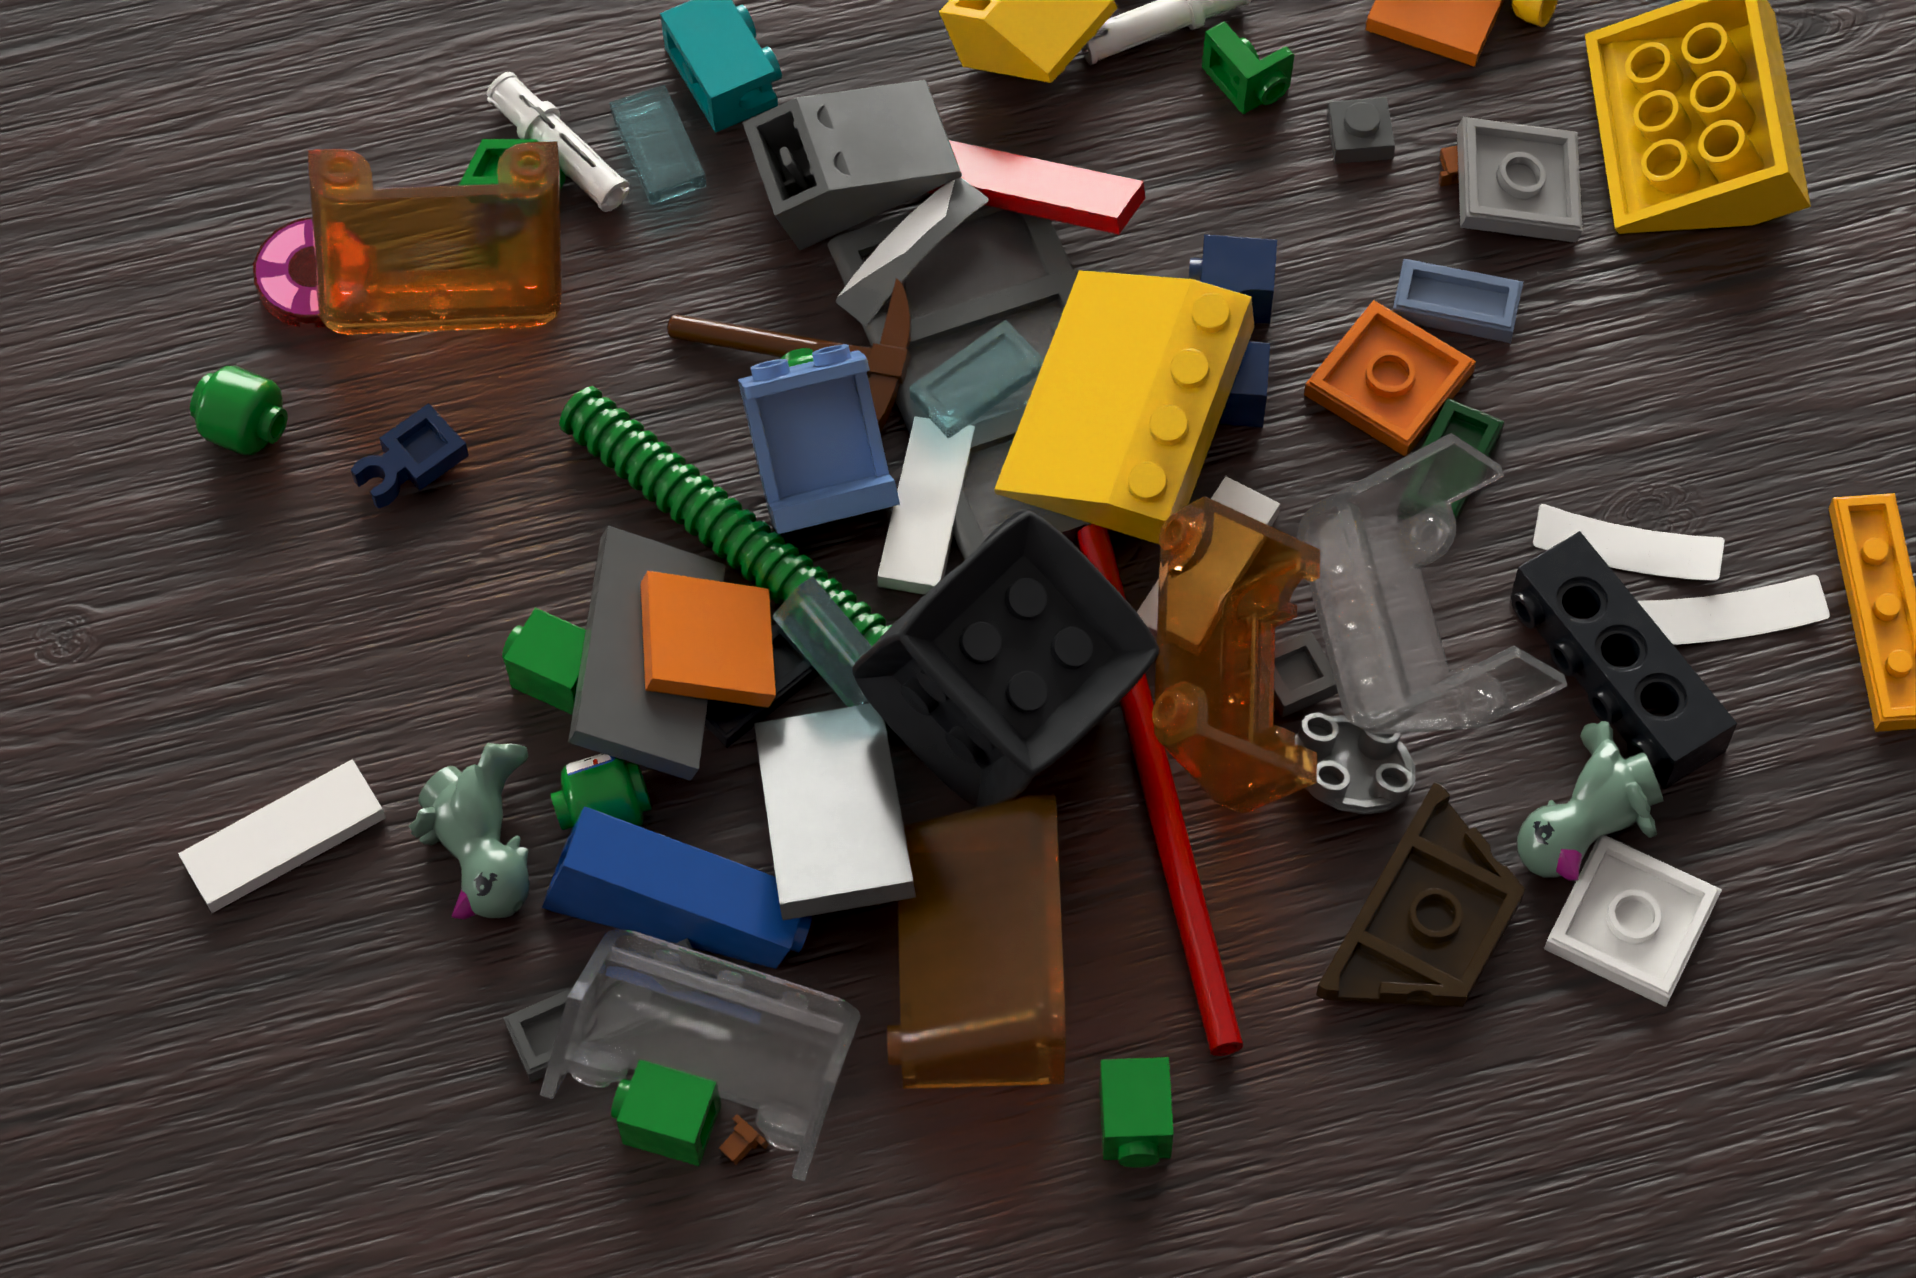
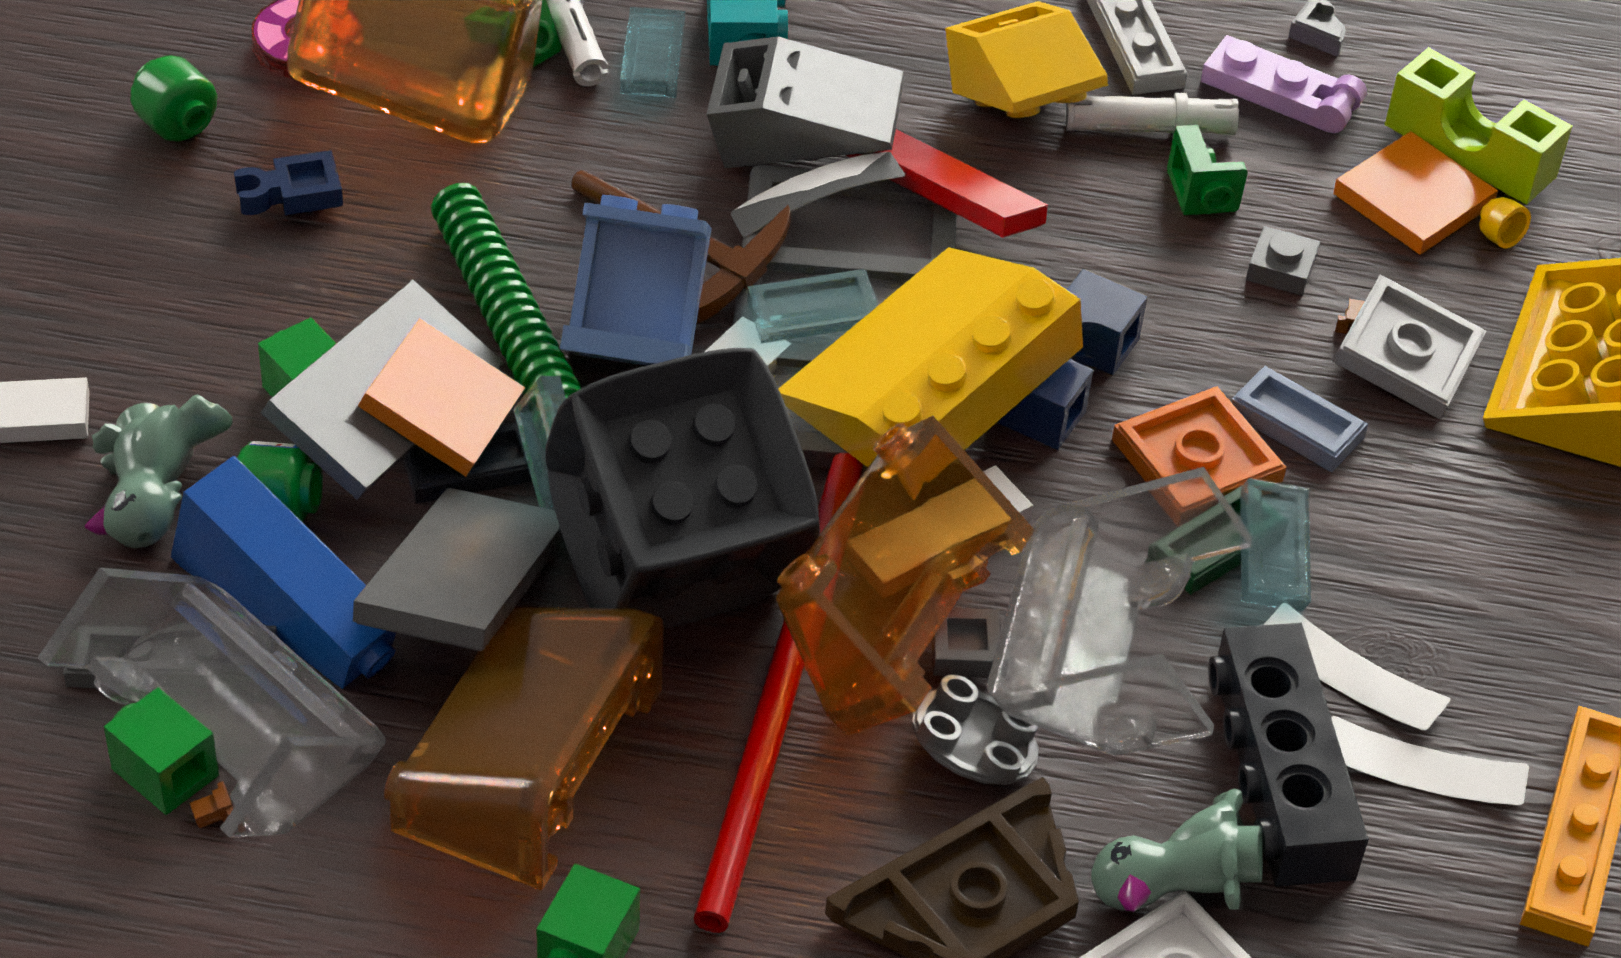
camera: 20 degrees right, 15 degrees down
(1503, 431) = (1279, 557): none -> clear light blue tile

